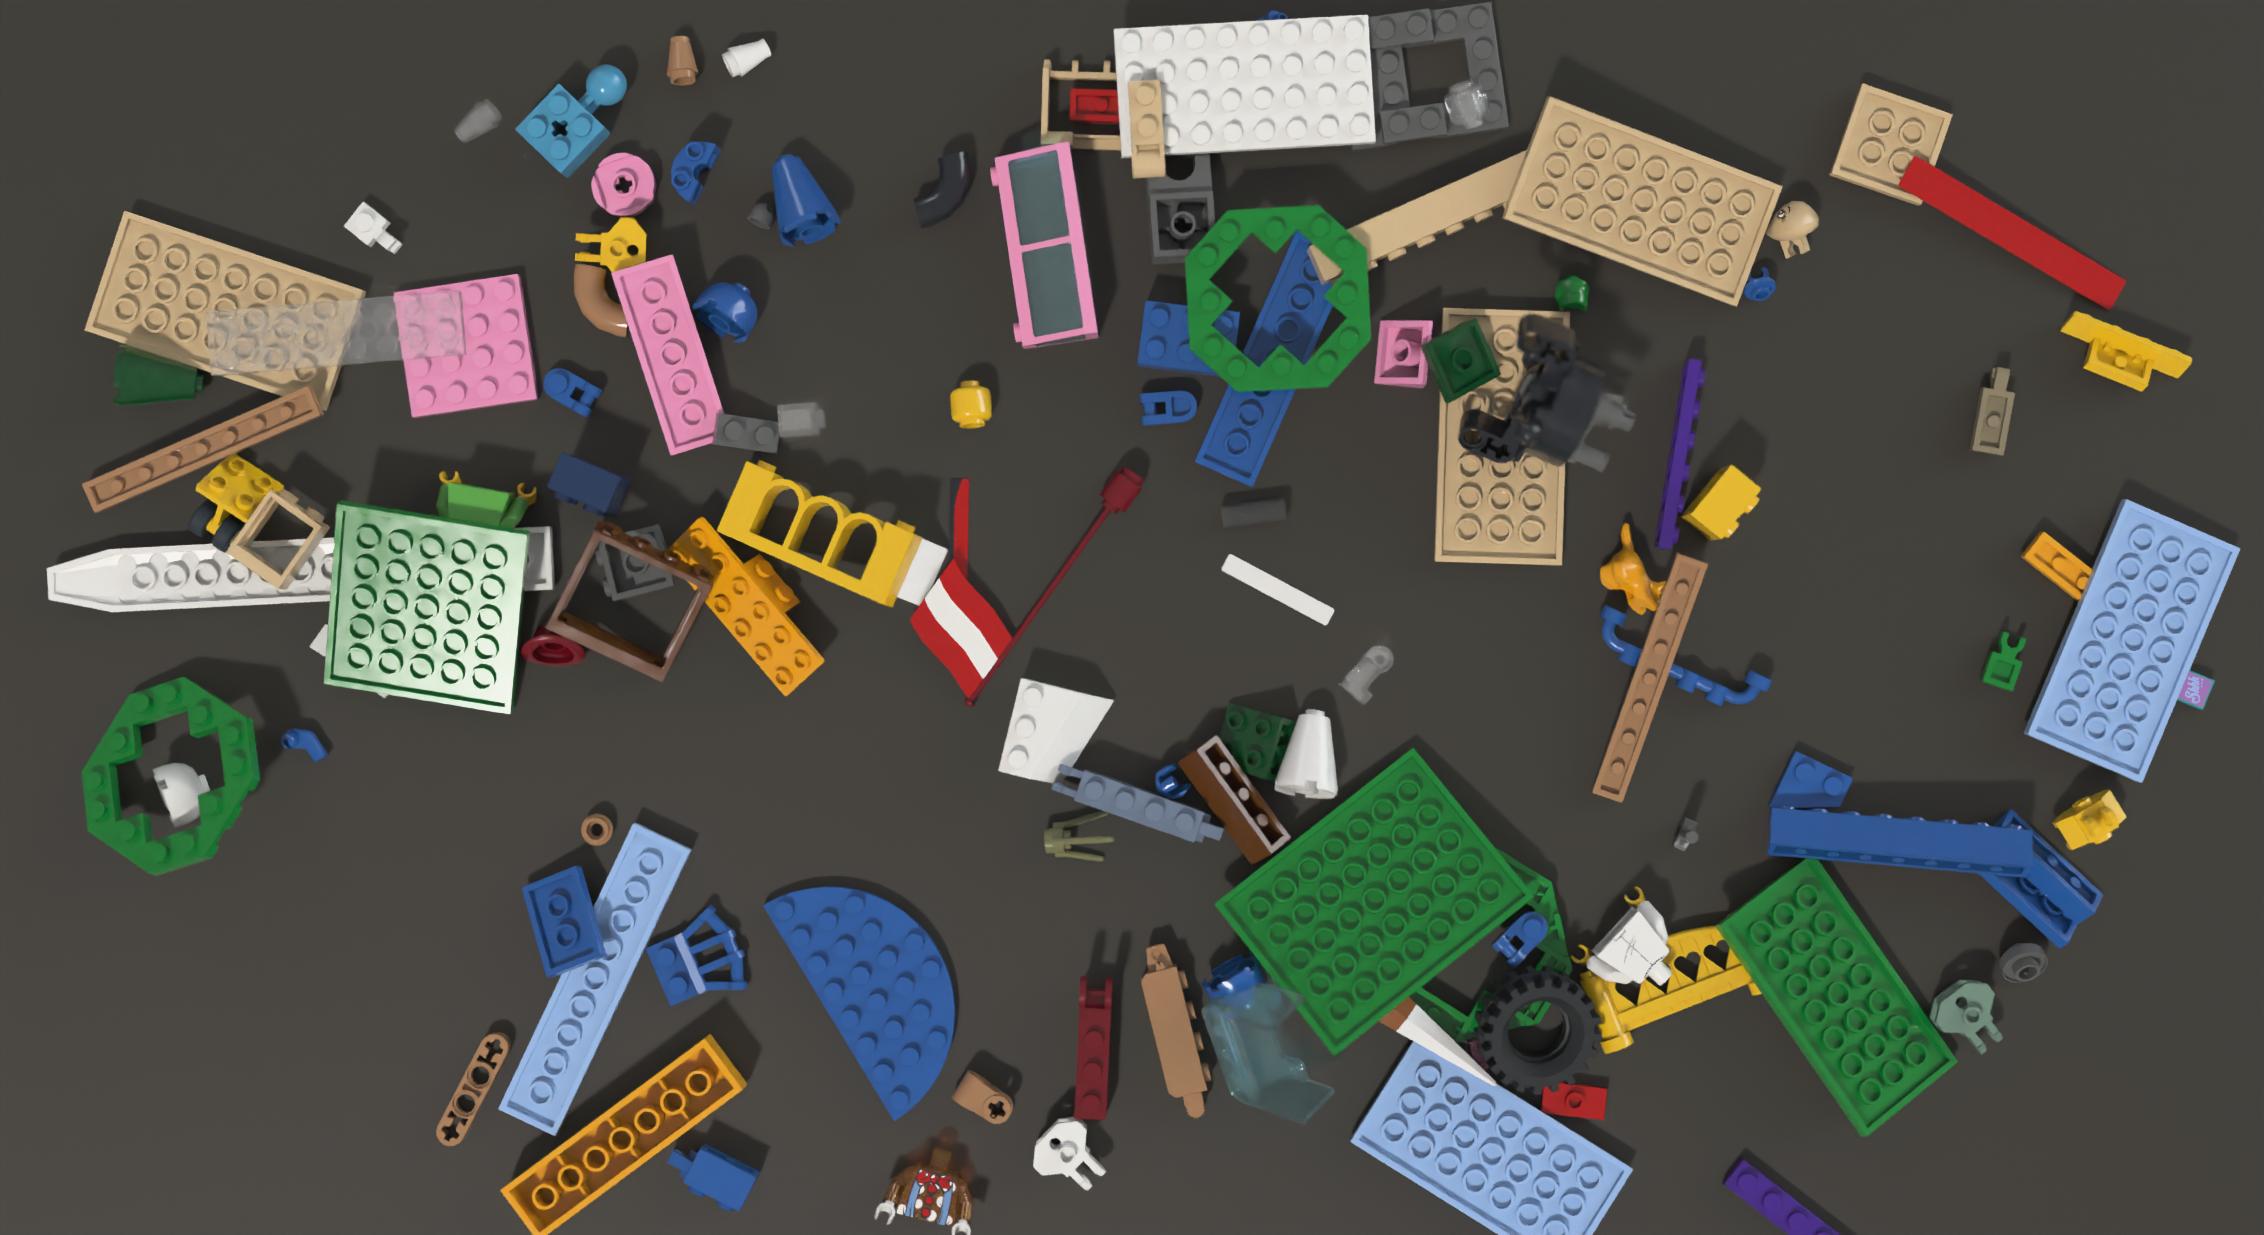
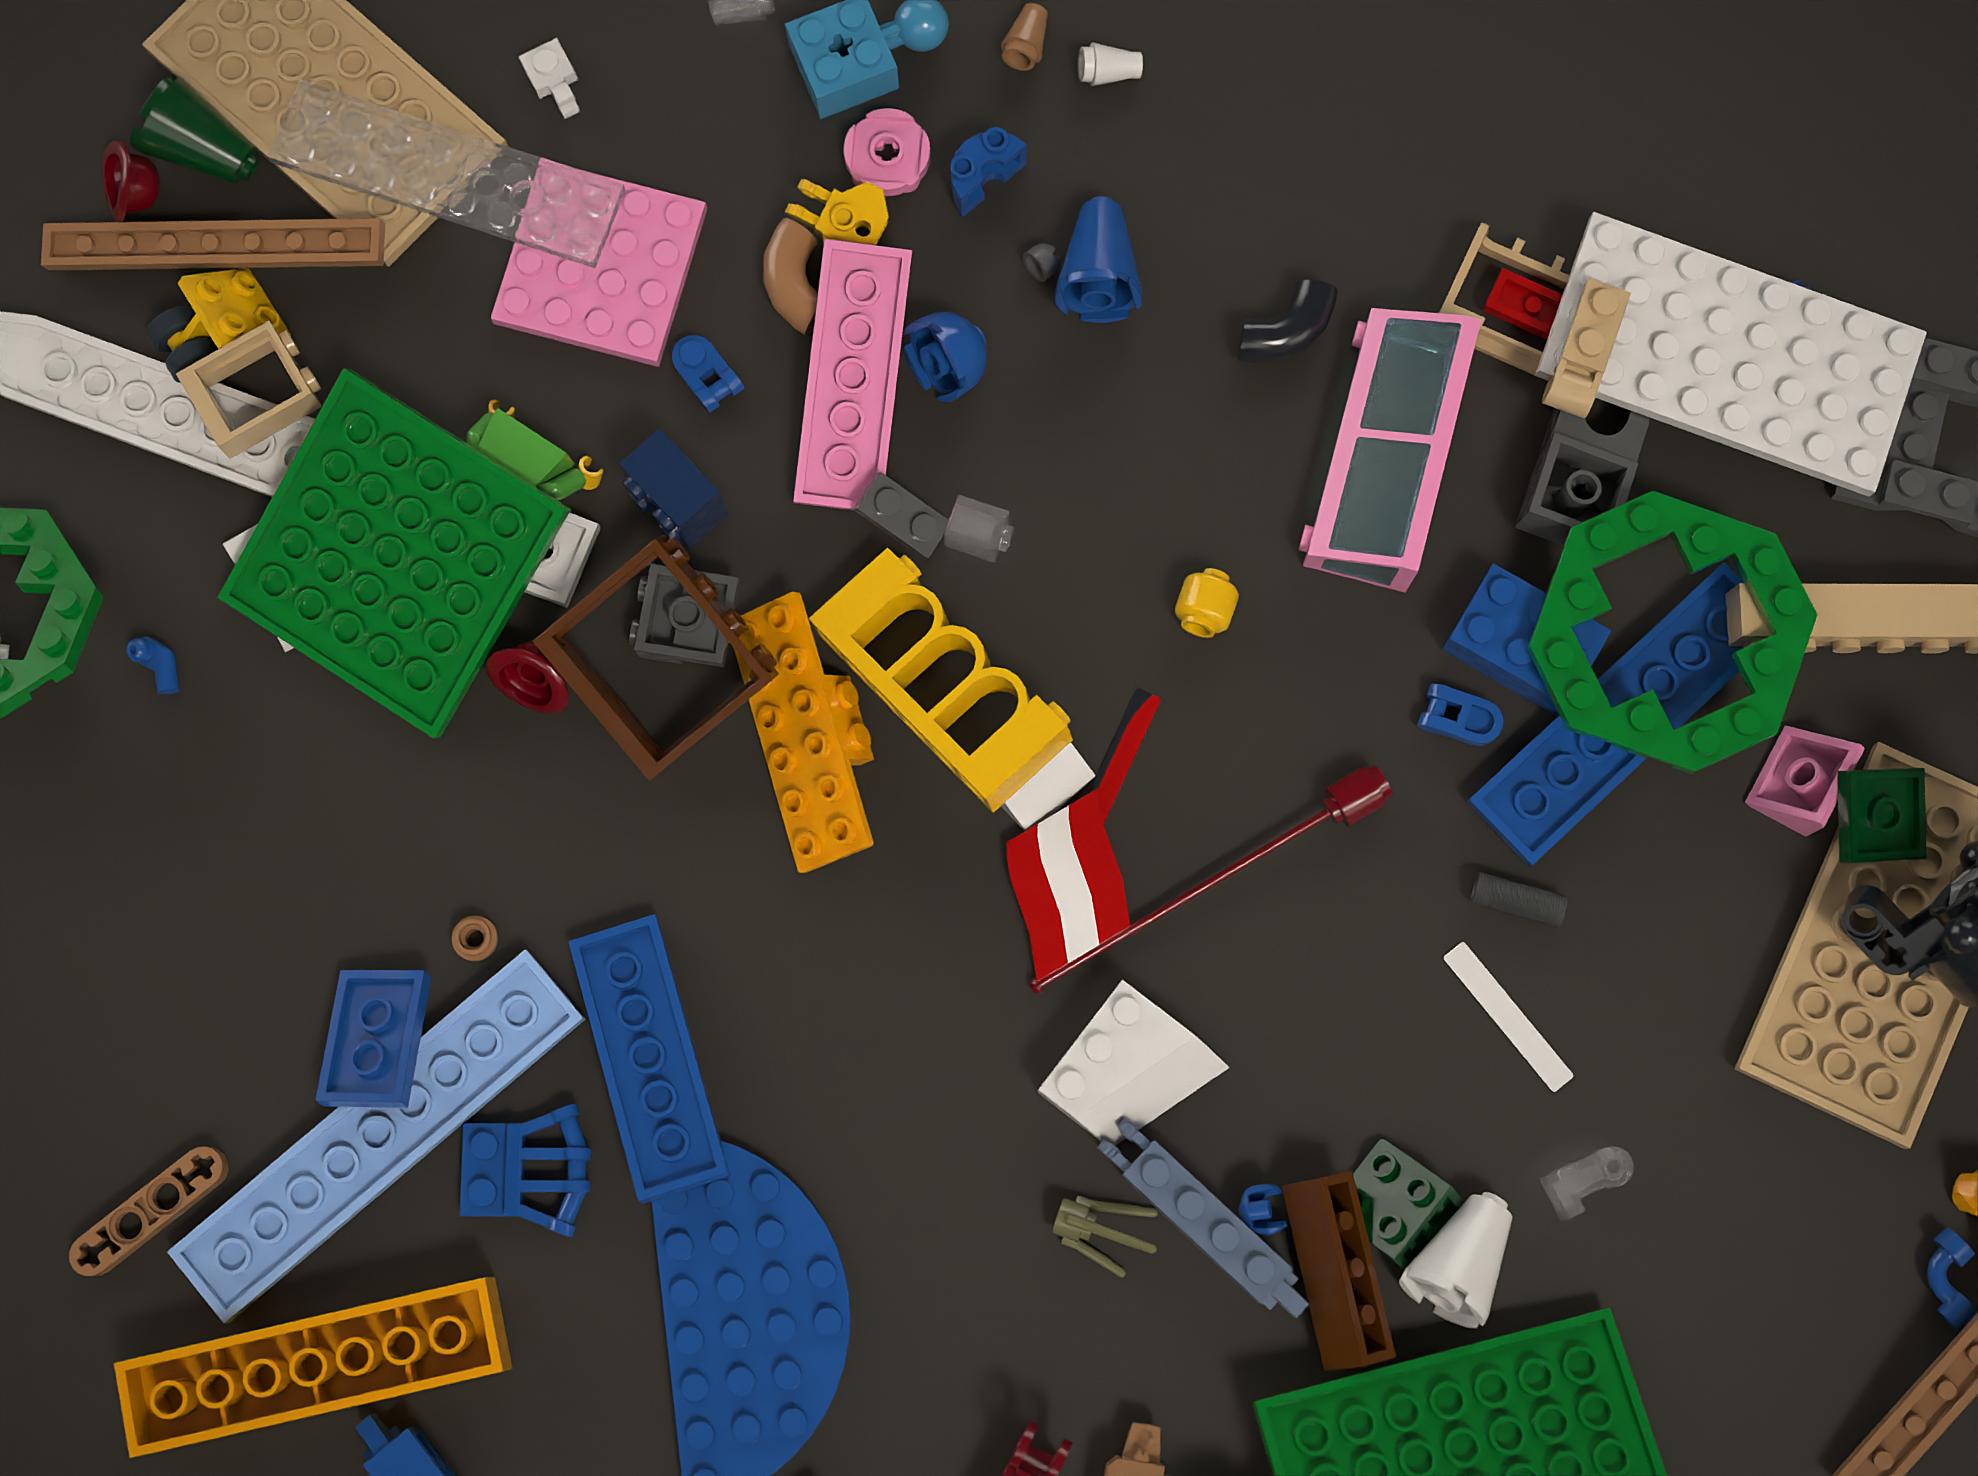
camera: 25 degrees right, 10 degrees down
(124, 430) = (128, 181): none -> dark red hat
(743, 857) = (648, 1059): none -> blue plate

